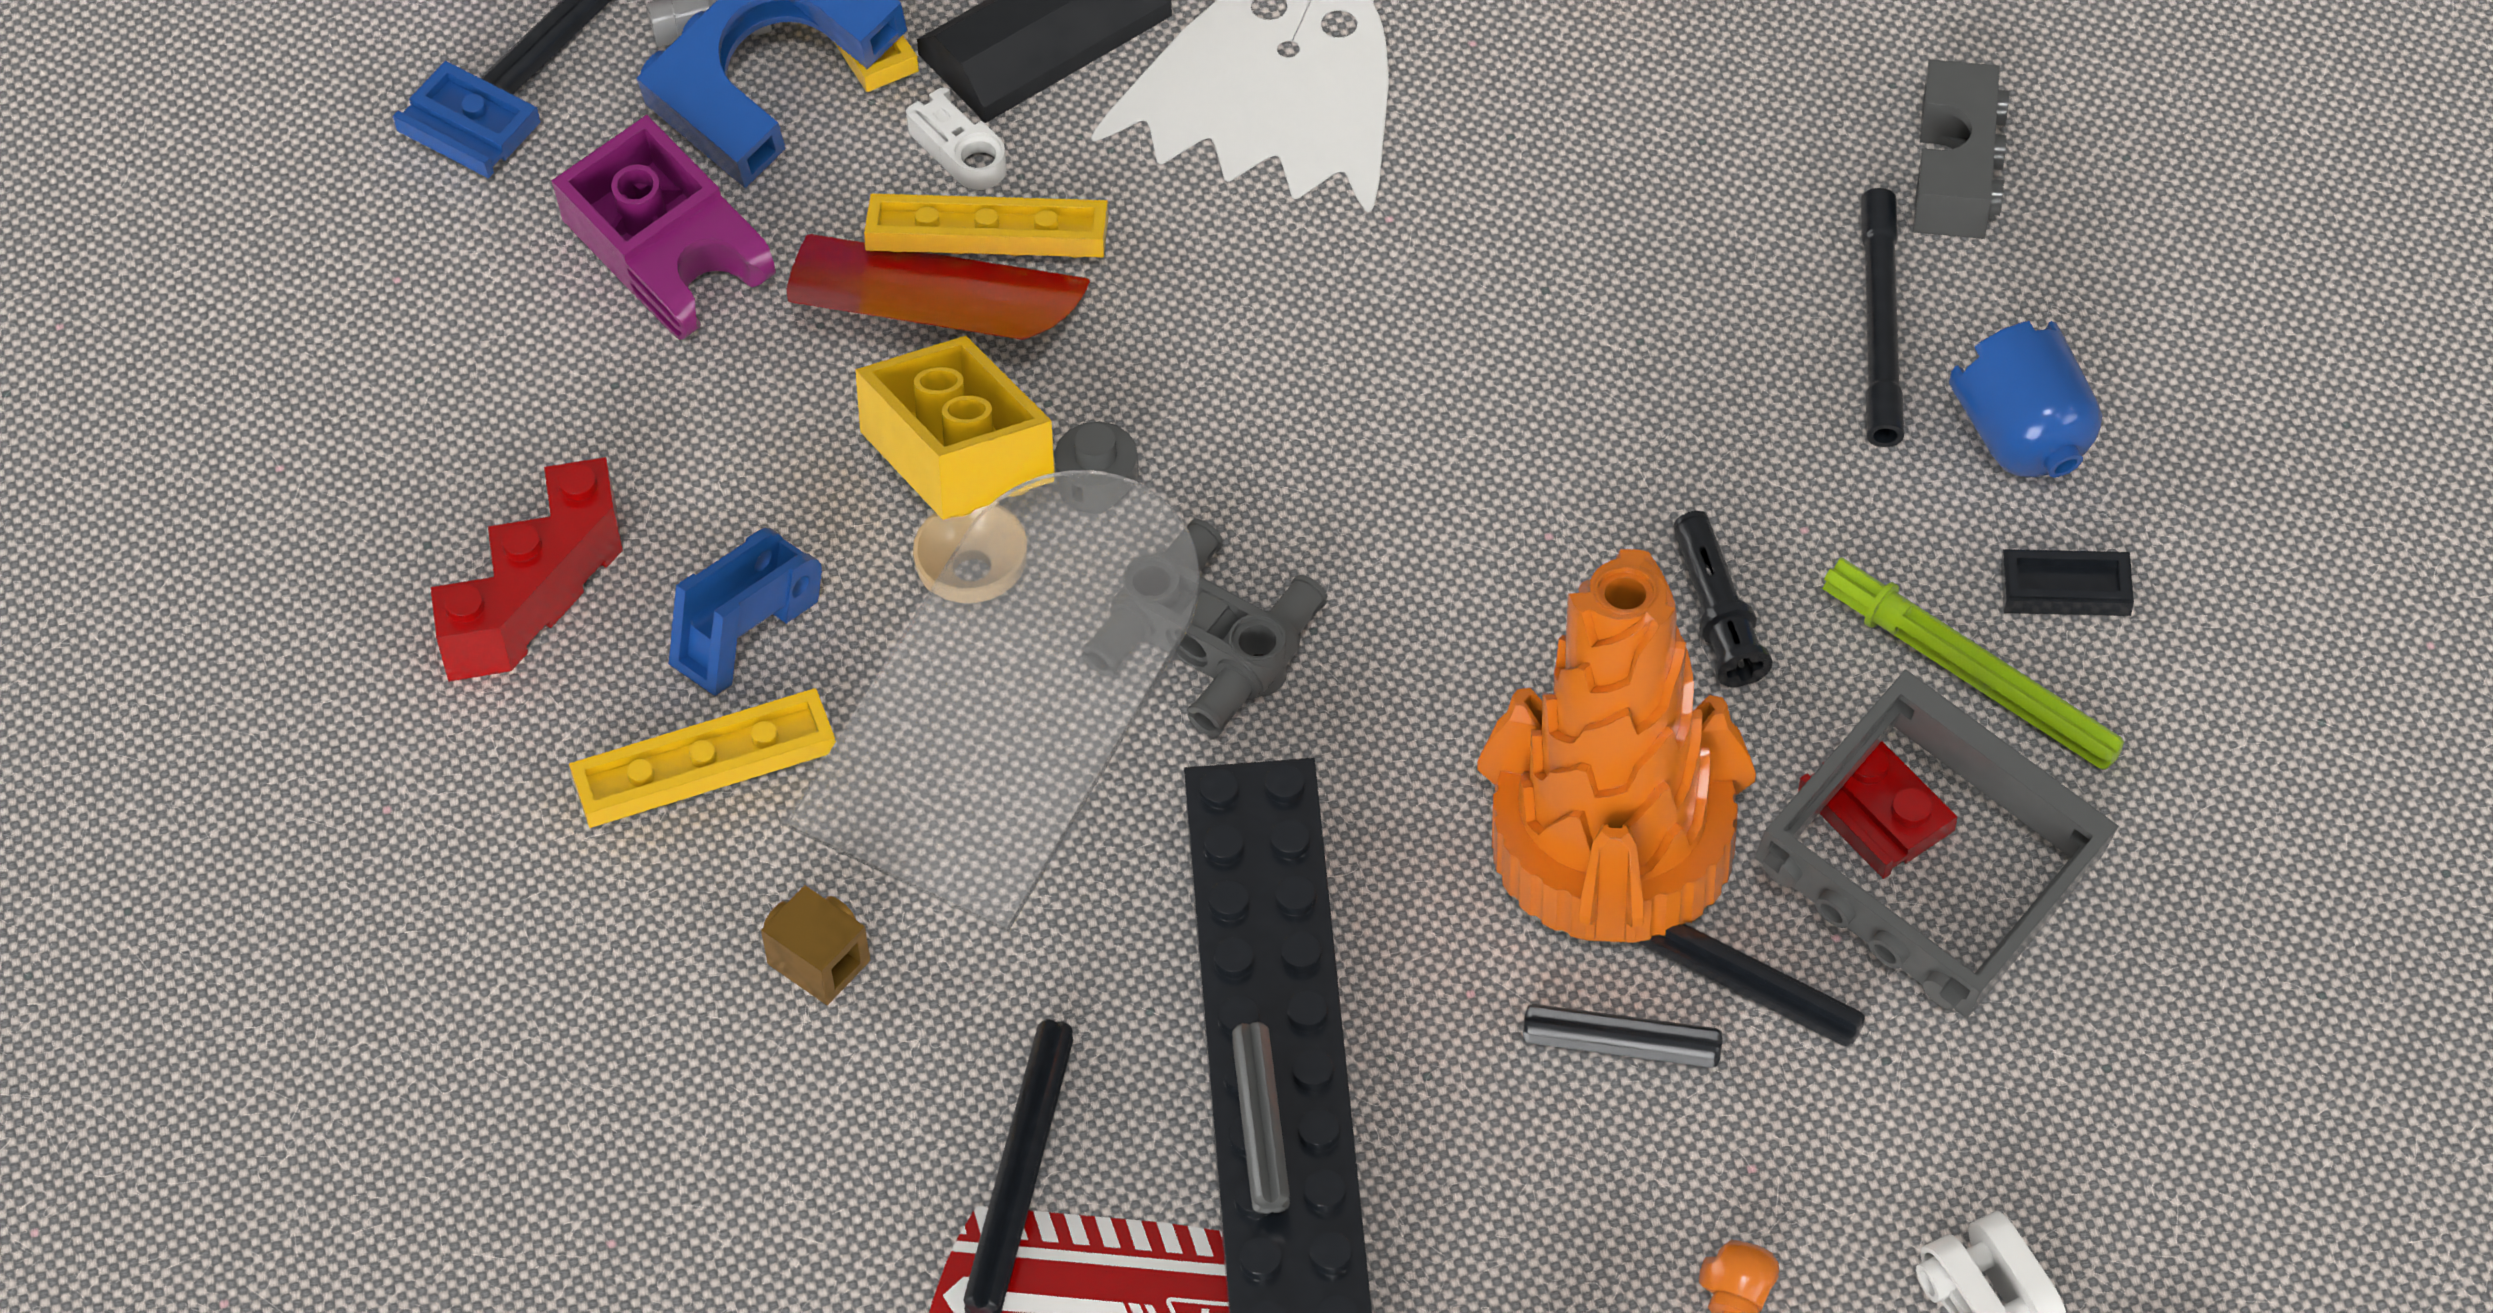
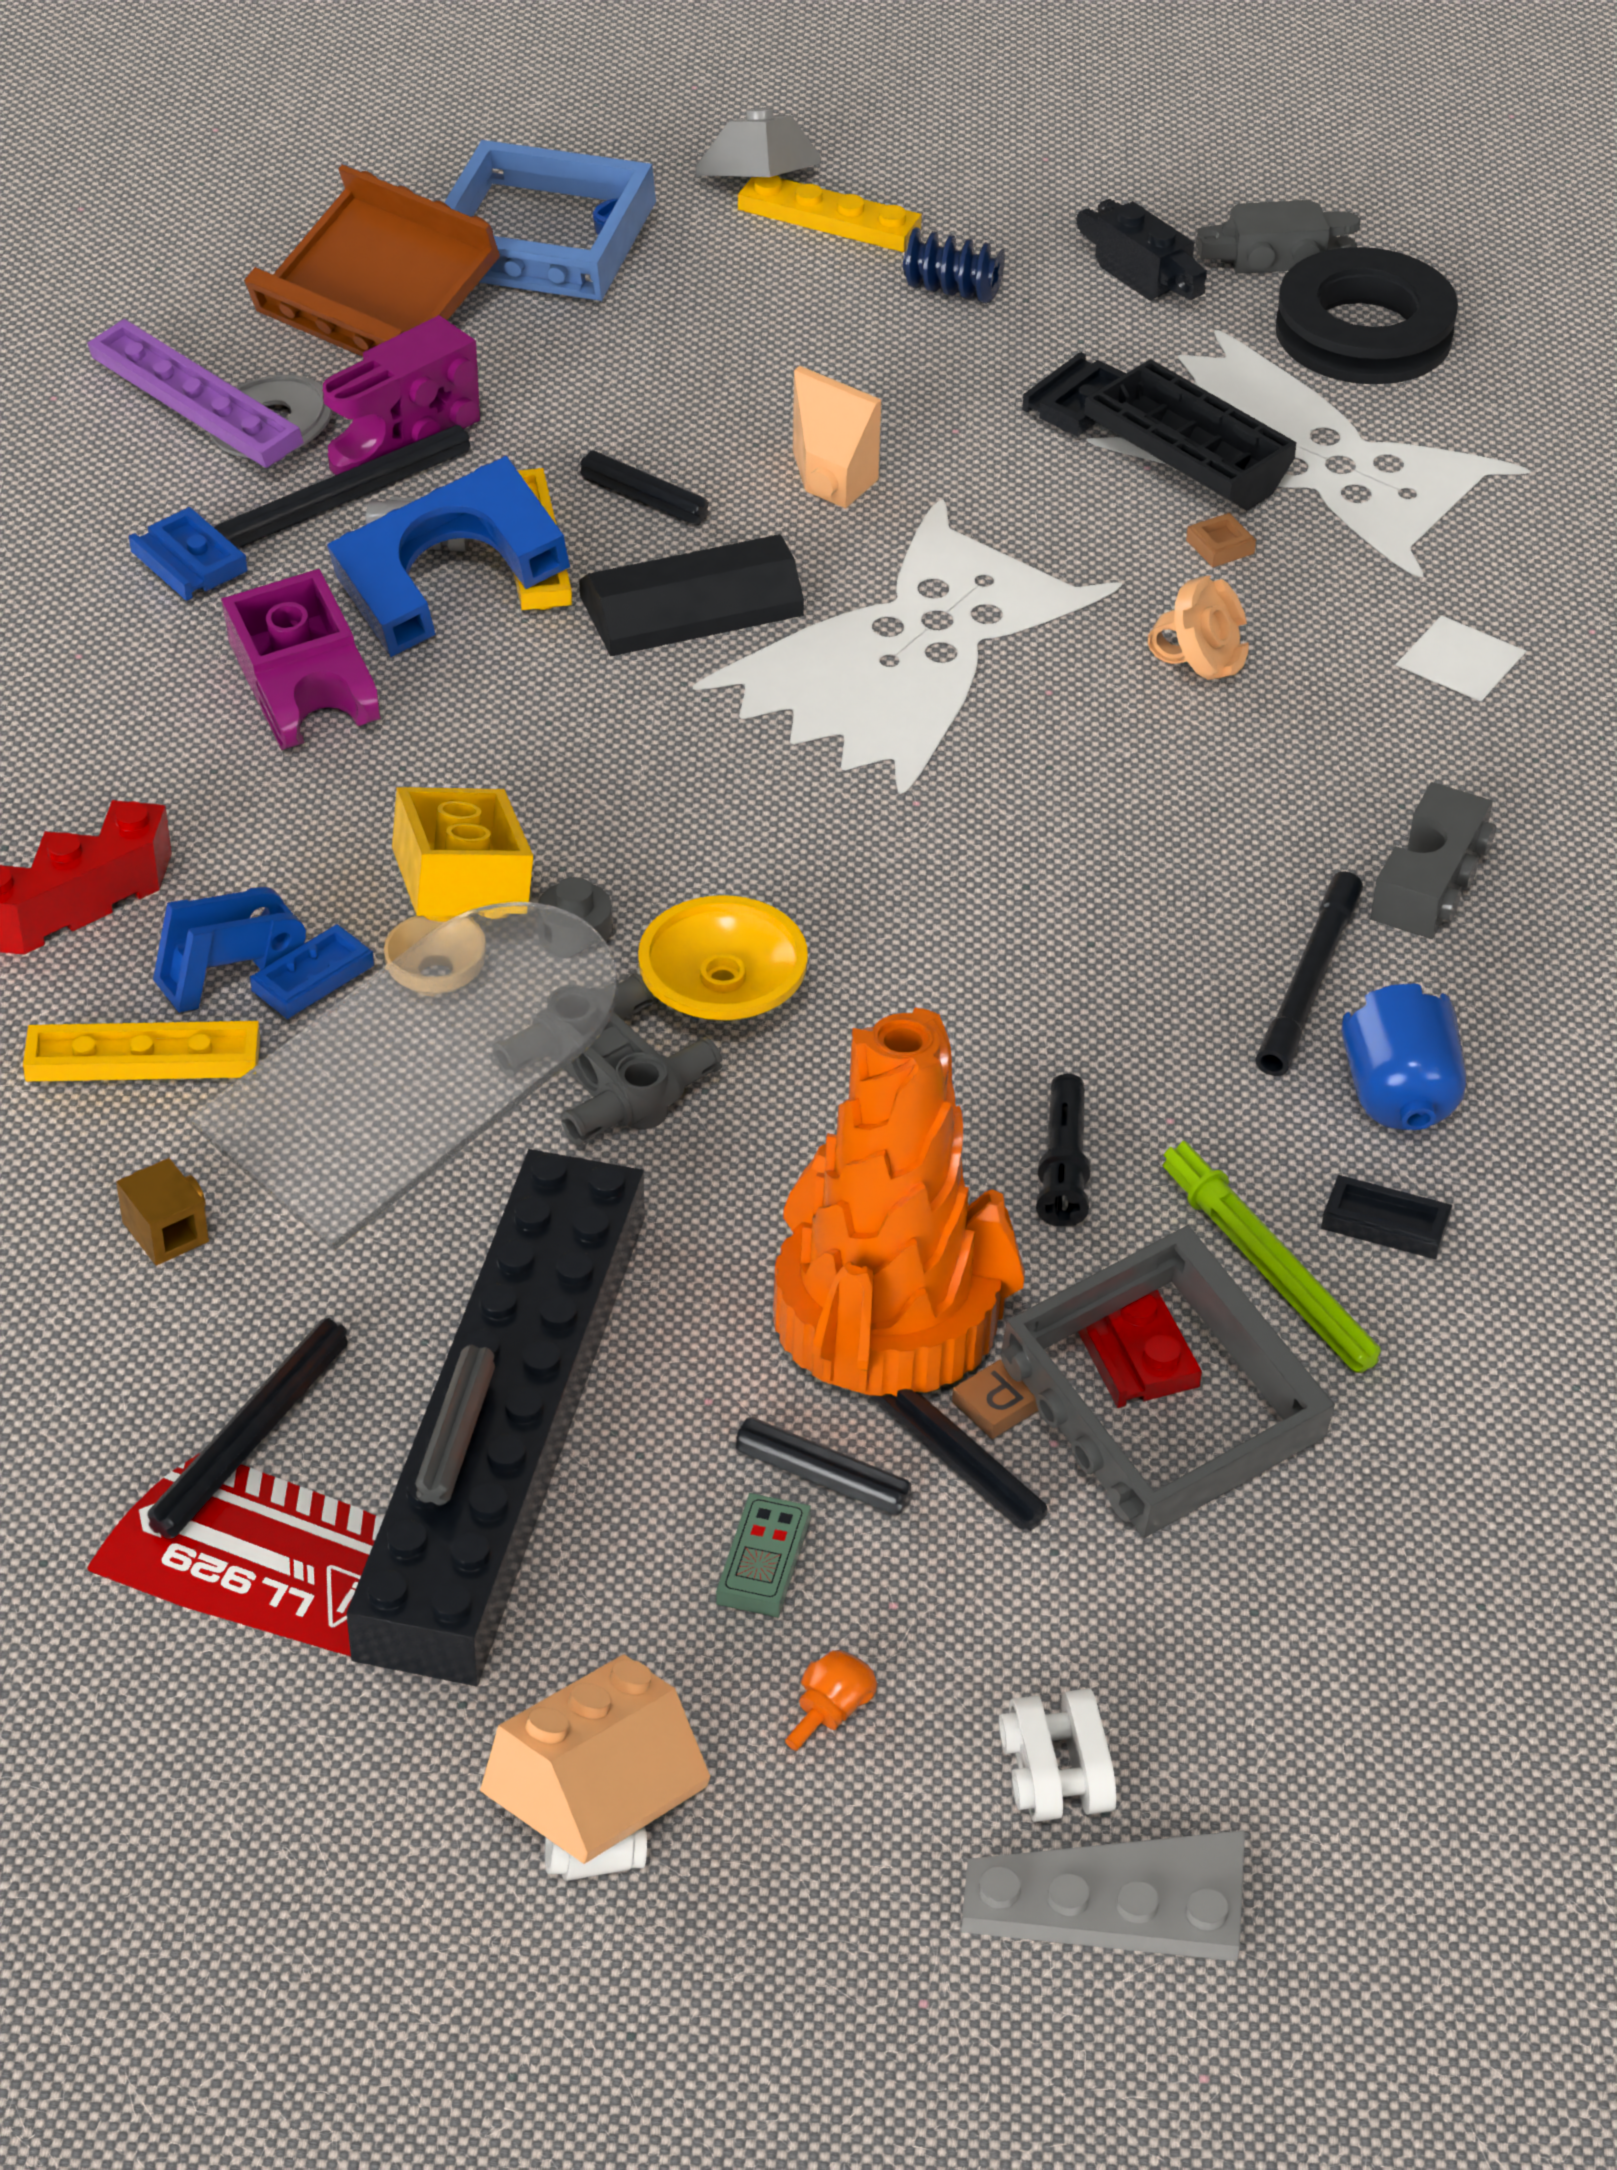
camera: 15 degrees right, 10 degrees down
(841, 608) = (312, 971): none -> blue plate
(931, 288) = (503, 756): red sticker -> none
(953, 137) = (574, 657): white piece -> none
(986, 225) = (570, 724): yellow plate -> none
(1278, 452) = (722, 957): none -> yellow dish
(1604, 1154) = (763, 1555): none -> sand green tile
(1762, 908) = (994, 1400): none -> medium nougat tile

